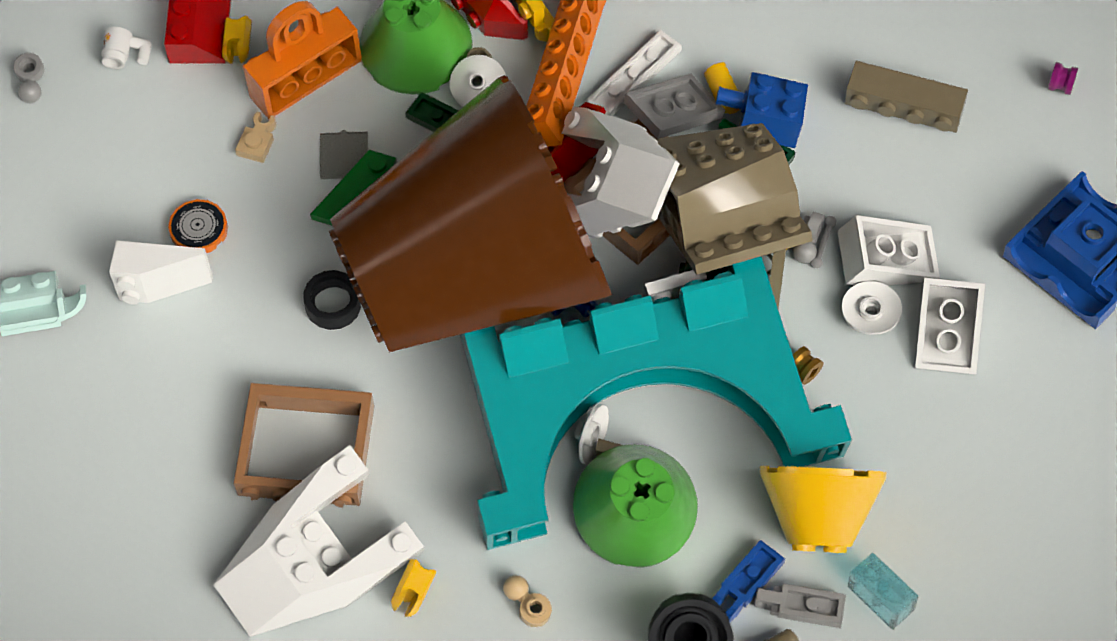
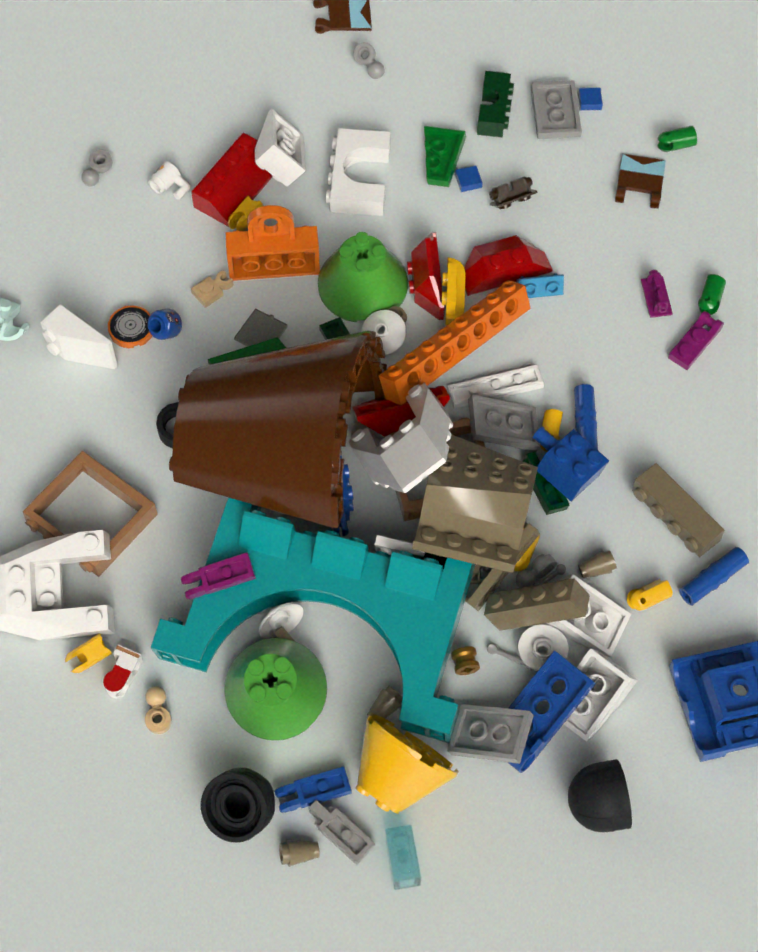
camera: 30 degrees right, 0 degrees up
(237, 202) = (164, 324): none -> blue head
(465, 592) = (123, 673): none -> leg
(514, 417) = (220, 576): none -> magenta hinge
(744, 50) = (586, 413): none -> blue axle
(756, 453) = (386, 703): none -> dark tan cone
(820, 339) = (492, 649): none -> light grey hinge
(843, 265) = (537, 604): none -> dark tan brick
(866, 195) = (597, 565): none -> dark tan cone
(886, 418) = (490, 733): none -> light grey plate
(922, 414) = (560, 705): none -> blue hinge
(936, 196) = (649, 595): none -> yellow piece
(984, 142) = (714, 576): none -> blue axle
(1036, 413) = (601, 797): none -> black piece

